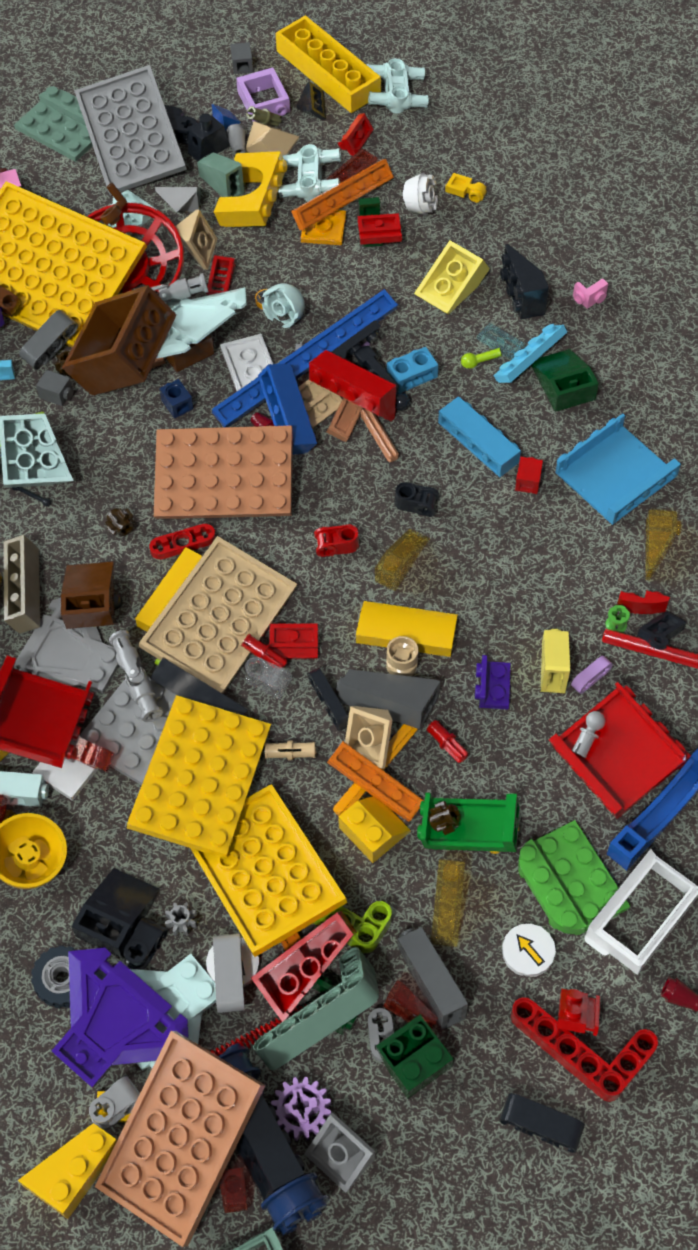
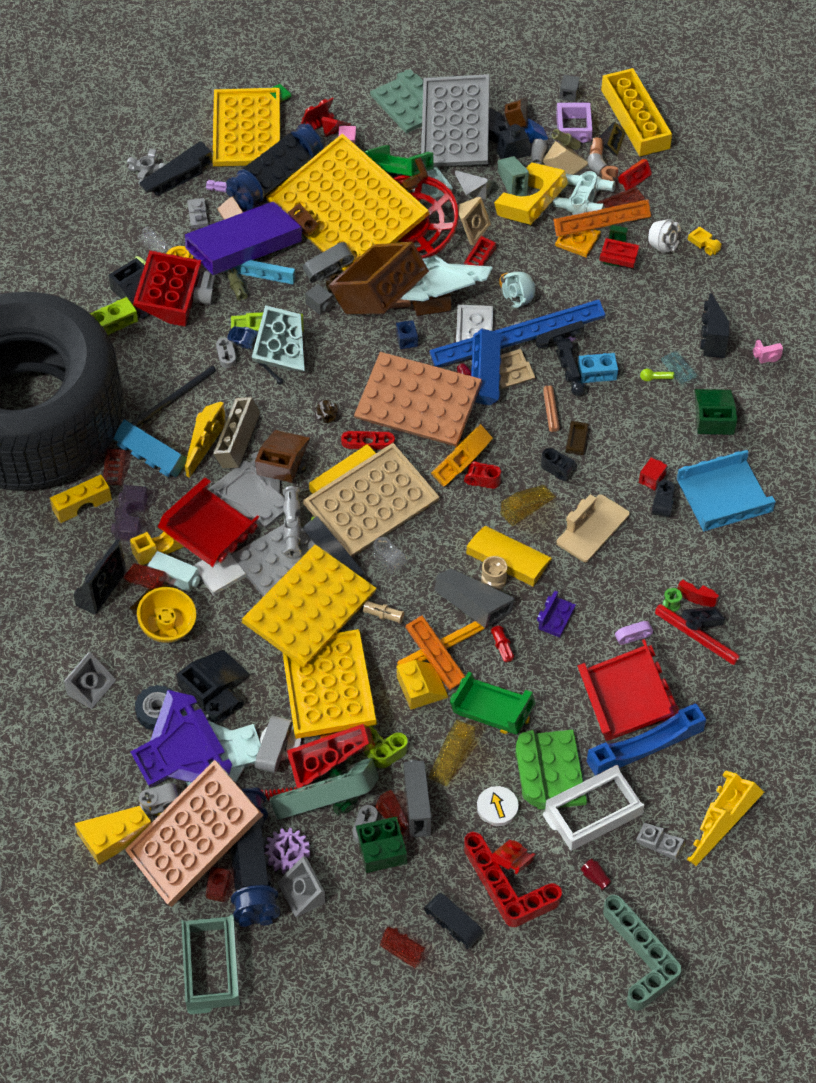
camera: 20 degrees right, 5 degrees down
(86, 199) = (397, 164): none -> green panel
(92, 755) = (238, 566): clear red leg -> none
(182, 288) = (442, 253): light grey piece -> none
(184, 924) = (255, 698): light grey gear -> none
(195, 101) = (517, 112): none -> reddish brown slope
(262, 651) = (392, 535): red axle -> none
(295, 640) = (419, 536): red plate -> none
(304, 525) = (462, 455): none -> light orange slope
(308, 134) = (597, 163): none -> piece
(327, 695) = (427, 584): black beam -> none
(344, 420) = (529, 388): nougat tile -> none
(354, 384) = (545, 364): red wedge -> none
(369, 733) = (444, 617): tan slope -> none
(397, 95) = (687, 136): light aqua piece -> none
(423, 460) = (577, 438): none -> dark brown tile
(444, 818) = (474, 693): dark brown gear -> none
(452, 278) = (660, 308): light yellow slope -> none
(479, 436) = (627, 433): dark azure brick -> none
(487, 562) = (591, 526): none -> tan bracket
(495, 1183) = (402, 946): none -> clear red plate
(526, 356) = (691, 385): medium azure plate -> none
(554, 501) = (663, 499): none -> black piece
(555, 661) = (608, 613): light yellow slope -> none
(594, 721) = (616, 664): light grey pin -> none
(660, 535) = (734, 552): clear yellow slope -> none

